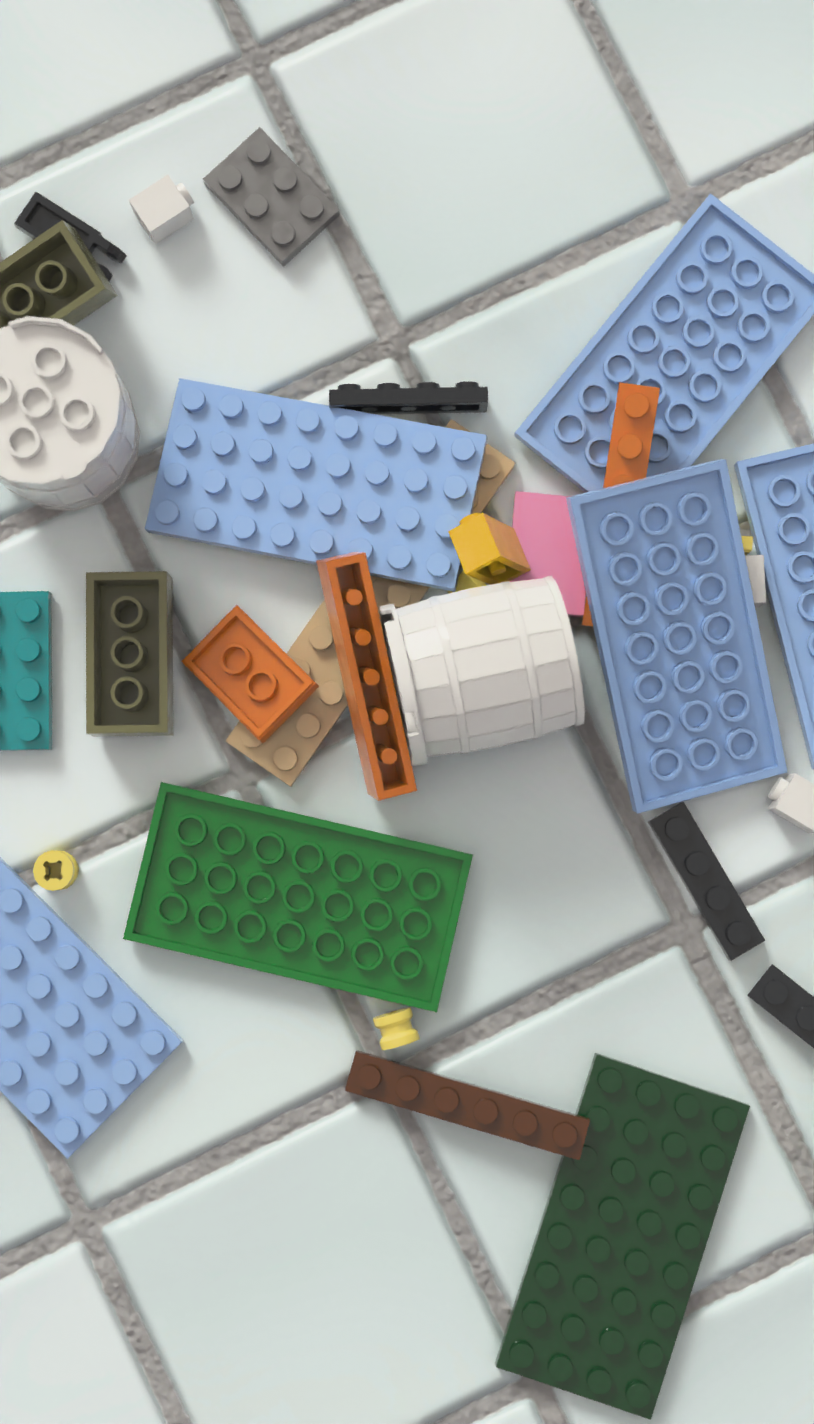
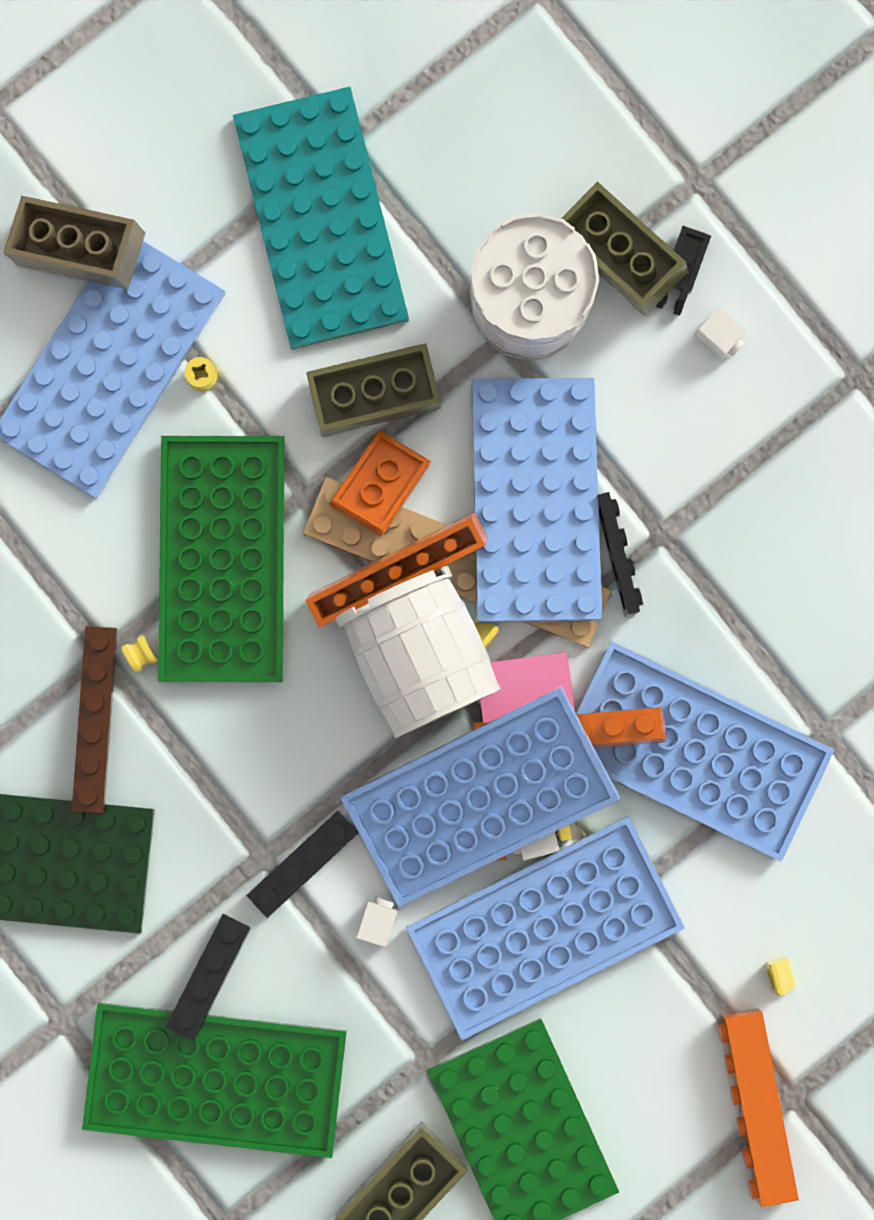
camera: 75 degrees right, 0 degrees up
(271, 196) = (752, 414): flat silver plate -> none
(488, 549) = (513, 640): yellow brick -> none

